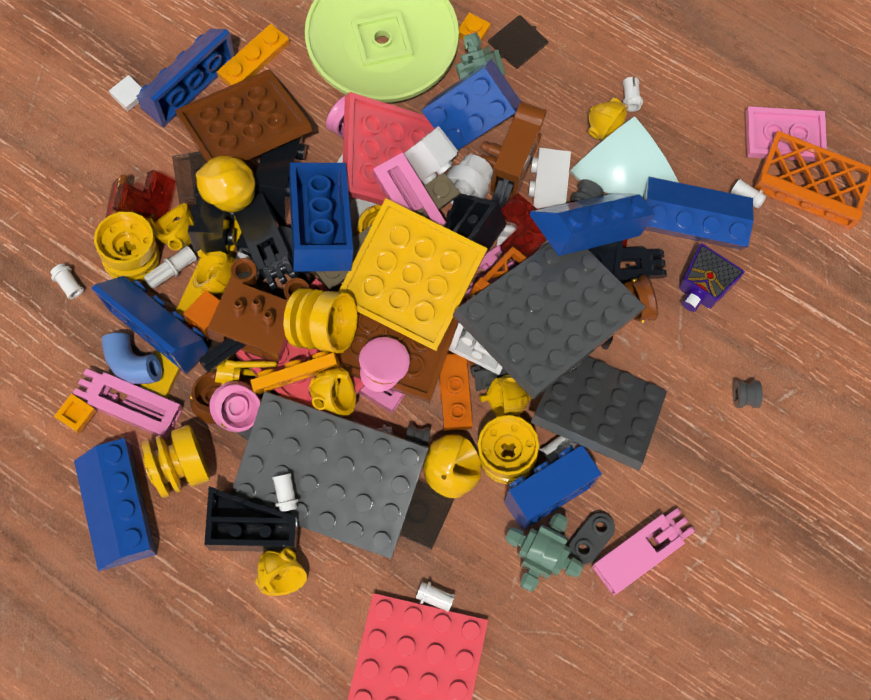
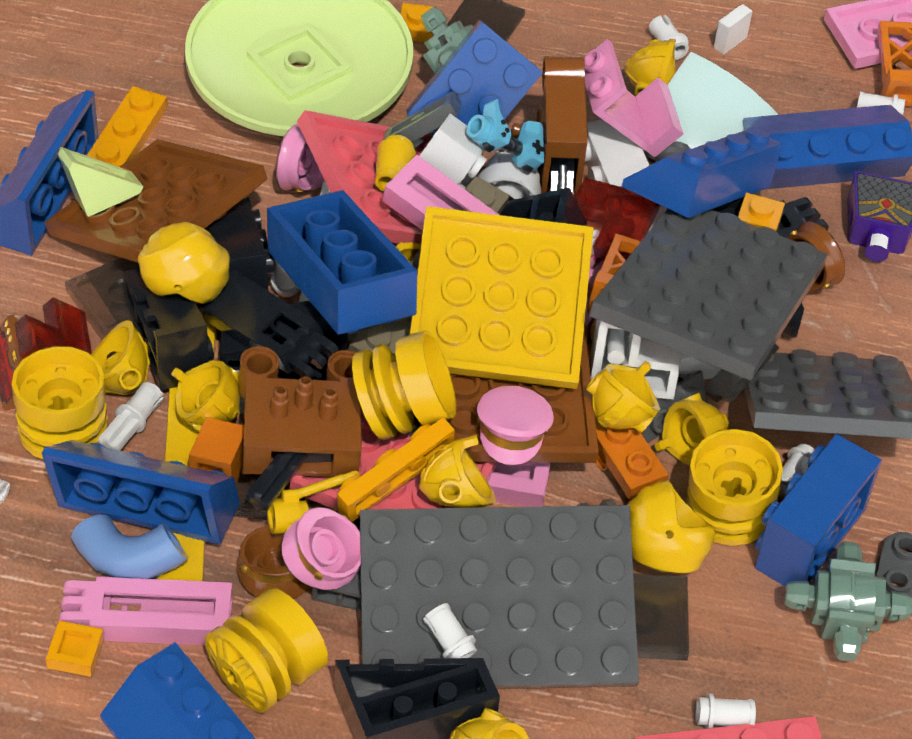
camera: 20 degrees left, 20 degrees down
(210, 95) = (97, 183): none -> yellowish green slope
(394, 144) = (392, 157): none -> yellow cone
(424, 122) = (426, 119): none -> dark grey plate
(458, 153) = (493, 133): none -> medium azure piece
(463, 368) = (623, 397): none -> yellow helmet
(567, 150) = (644, 118): none -> bright pink panel
(617, 260) = (761, 211): none -> light orange plate
(677, 102) = (732, 29): none -> white tile

